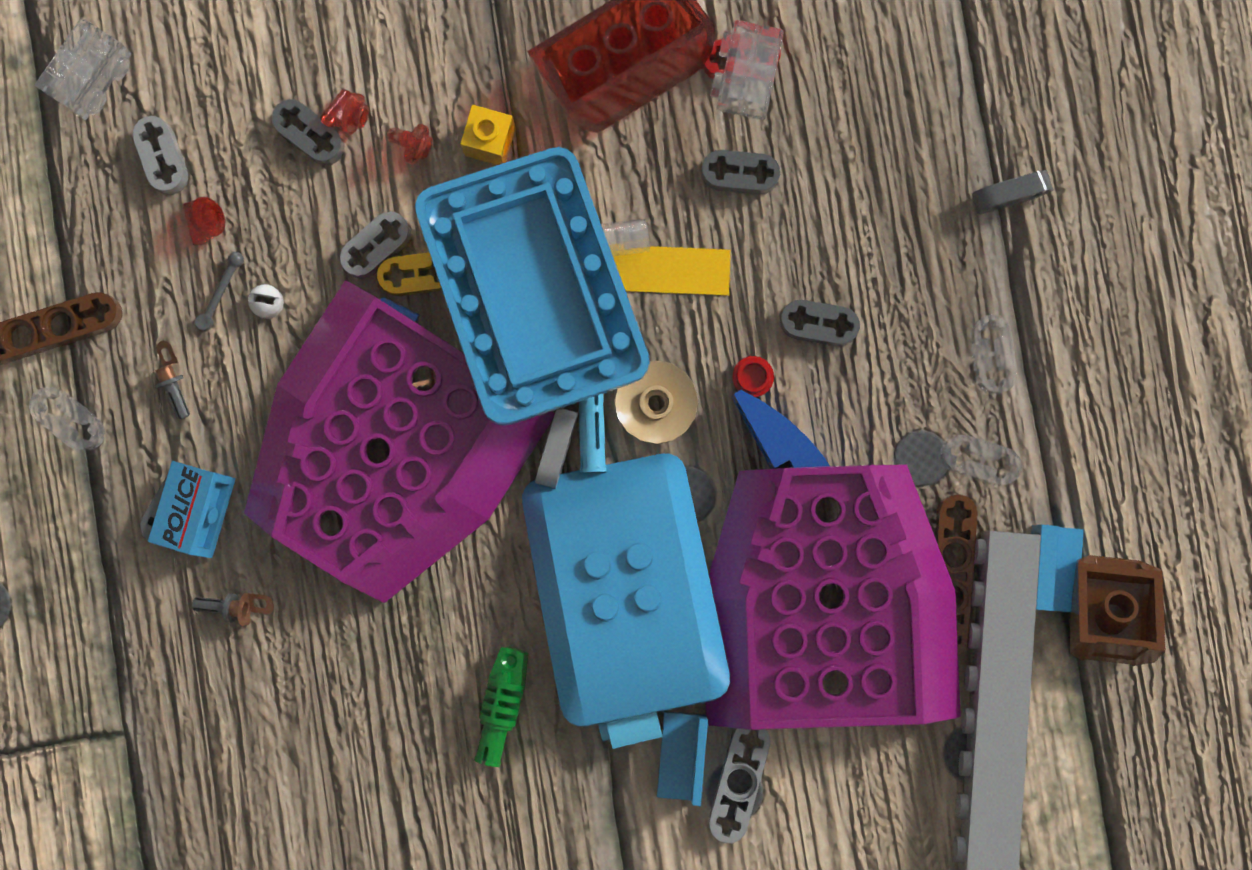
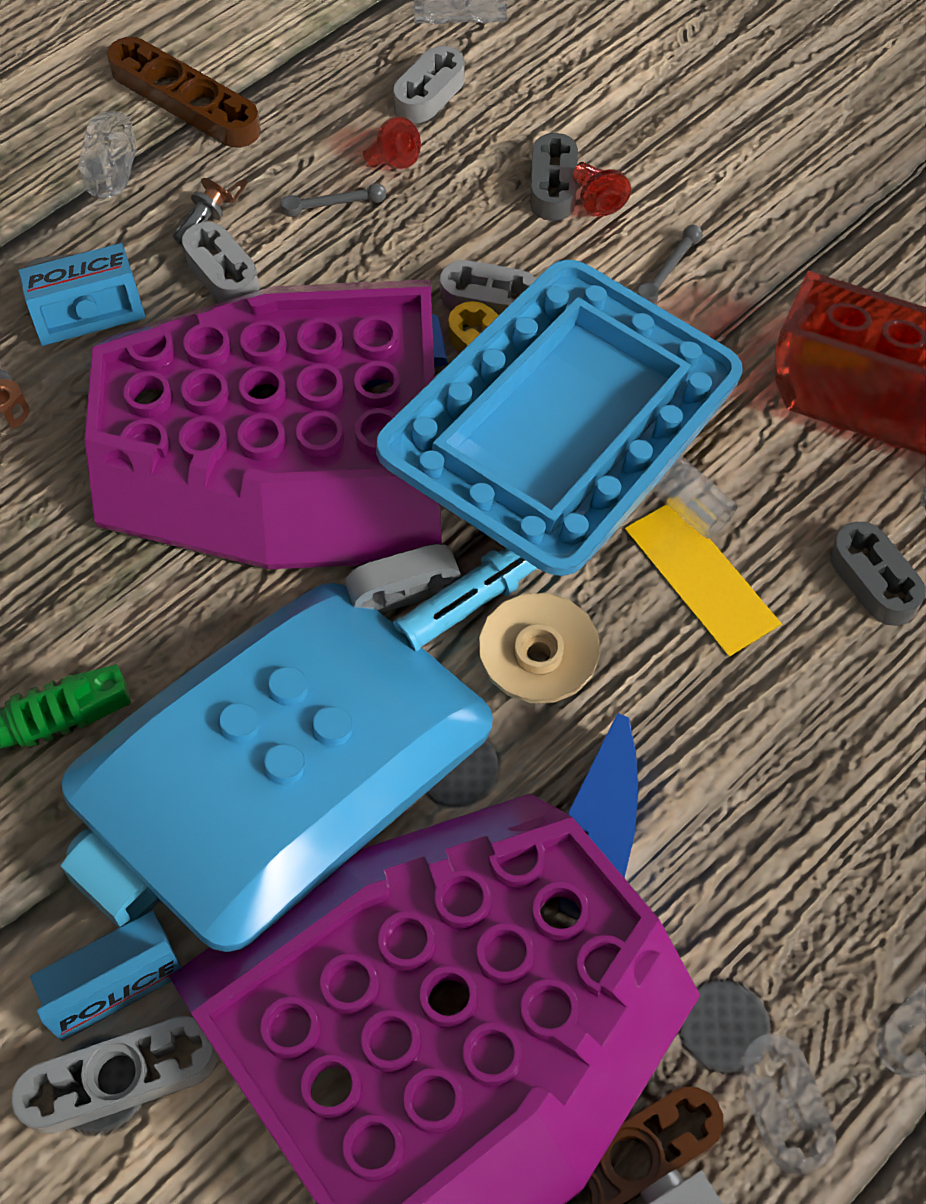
camera: 55 degrees right, 25 degrees down
(226, 412) = (211, 268): none -> light grey beam
(262, 309) = (344, 241): white hinge -> none
(416, 143) = (624, 261): clear red plate -> none
(446, 142) = (691, 236): none -> dark grey hinge
(488, 135) = (694, 297): yellow brick -> none
(753, 376) = (659, 739): red plate -> none
(820, 312) = (796, 765): dark grey beam -> none

